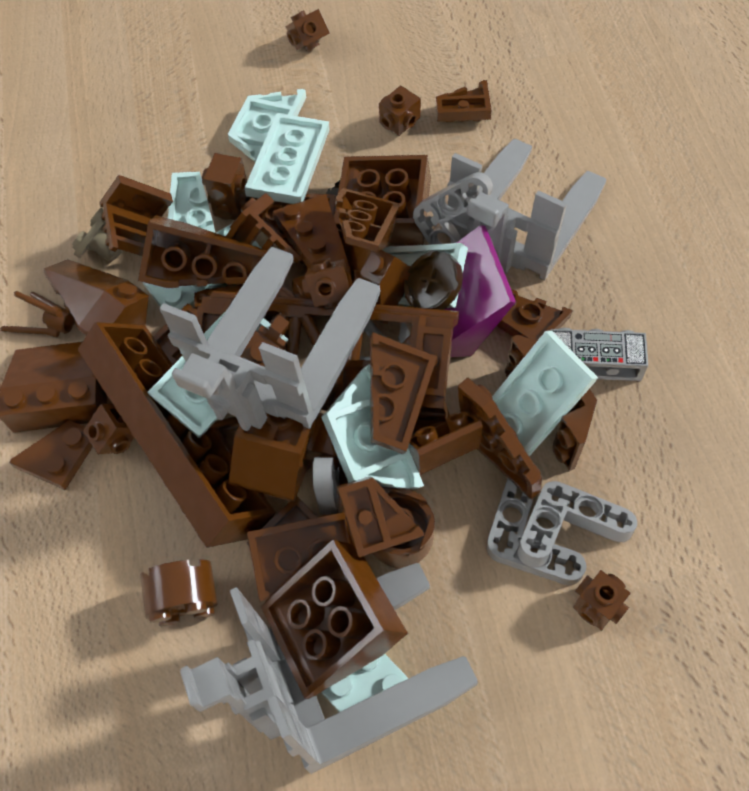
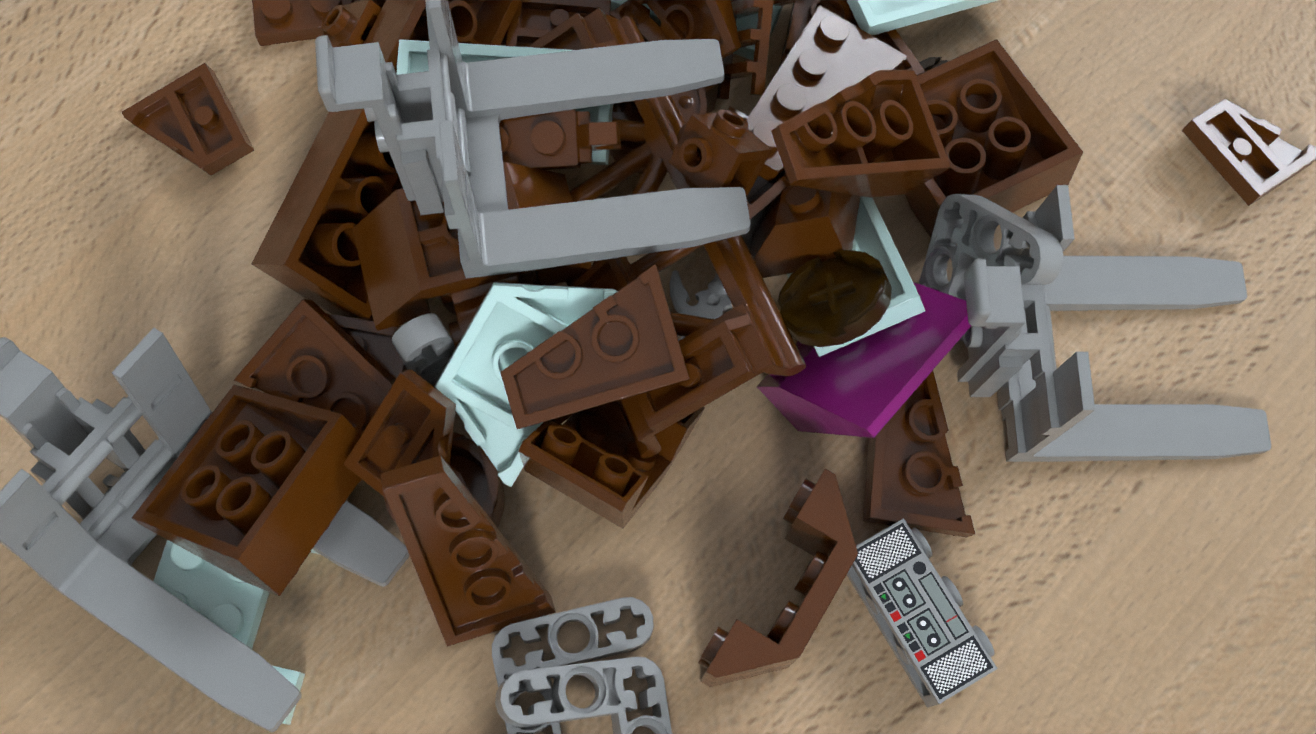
camera: 50 degrees right, 10 degrees up
(84, 546) = (193, 120): none -> reddish brown wing
(178, 591) = (185, 272): reddish brown brick -> none
(399, 110) = (1151, 63): reddish brown brick -> none
(445, 528) = (460, 554): none -> reddish brown wing
(498, 439) = (645, 559): reddish brown plate -> none
(542, 390) = (746, 561): light aqua plate -> none

